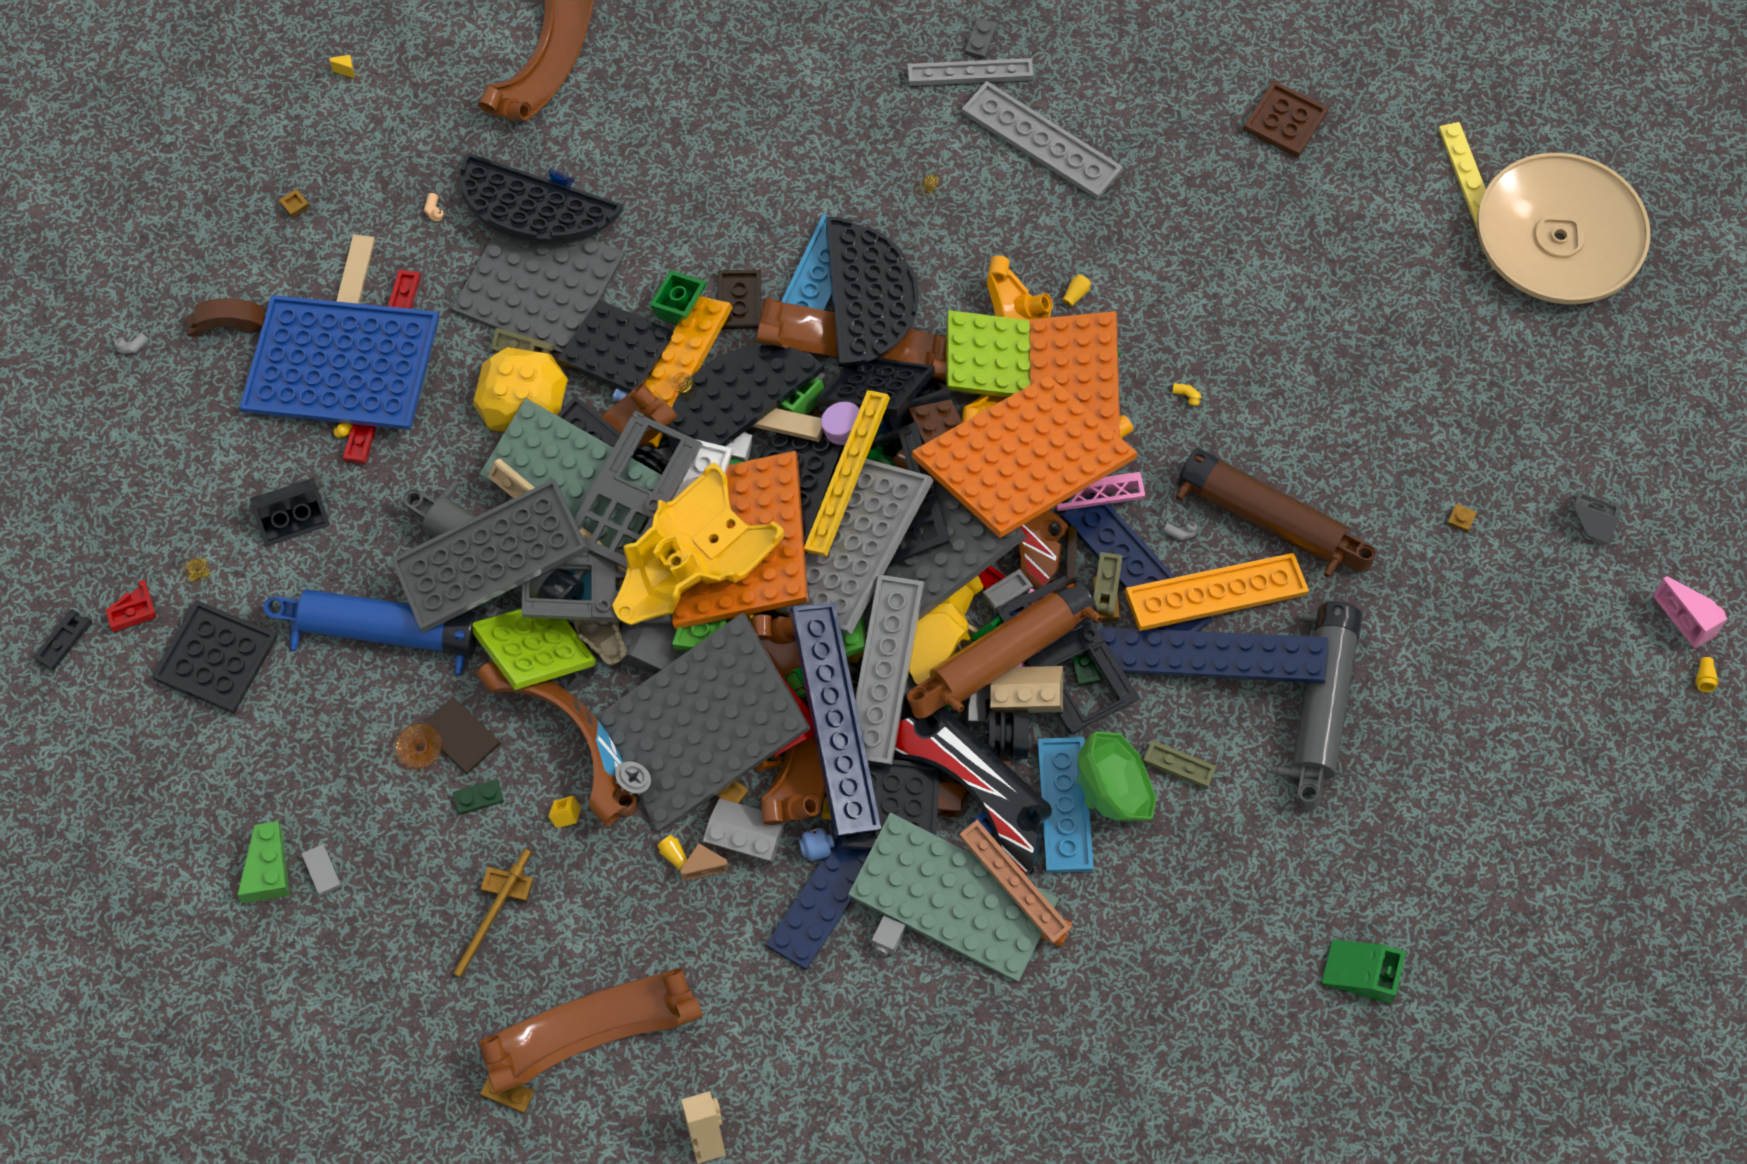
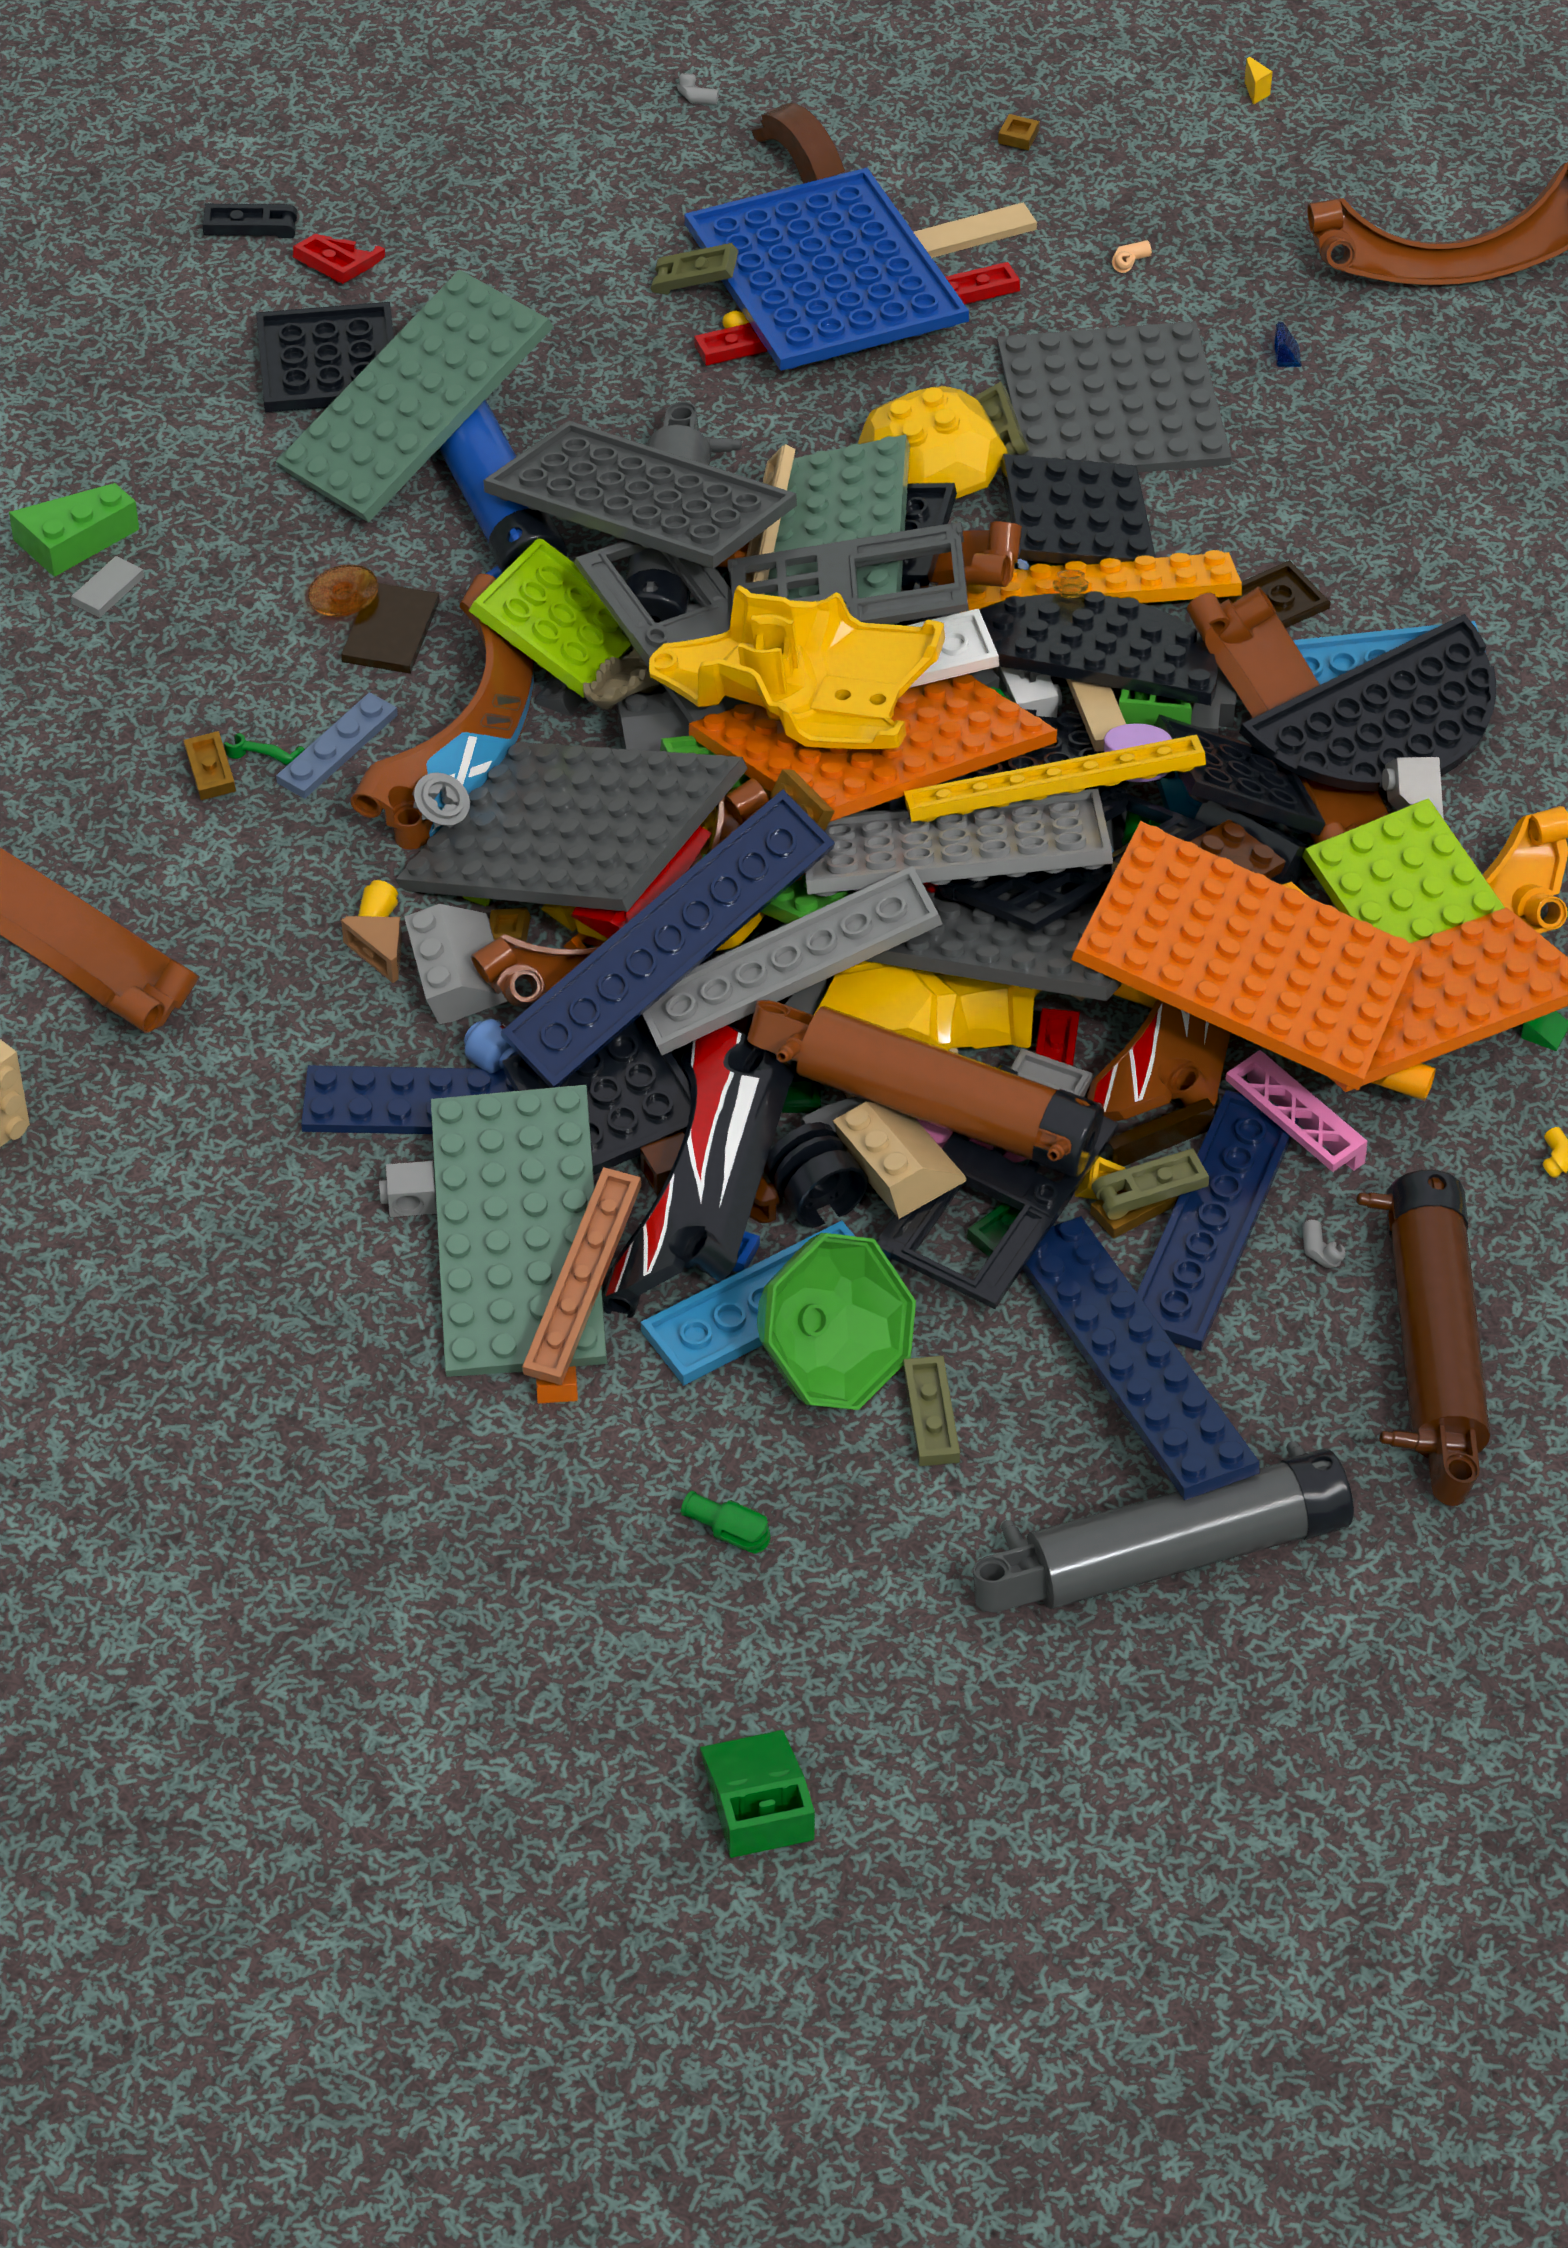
camera: 60 degrees right, 15 degrees down
(193, 565) = (432, 284): clear yellow plate -> none
(289, 512) = (585, 327): black slope -> none
(294, 427) = (694, 268): none -> olive plate
(306, 628) = (414, 395): none -> sand green plate
(478, 797) = (316, 684): dark green plate -> none
(515, 847) = (241, 746): none -> green piece
(516, 871) = (226, 757): pearl gold bar -> none
(530, 204) = (1214, 334): black plate -> none
(533, 810) = (336, 745): none -> sand blue plate
(565, 811) = (348, 772): yellow slope -> none
(677, 297) = (1201, 526): green slope -> none
(780, 602) = (804, 797): none -> pearl gold plate
(927, 310) = (1412, 781): none -> slope
(1196, 895) = (729, 1522): none -> green arm
(1216, 591) = (1248, 1322): light orange plate -> none

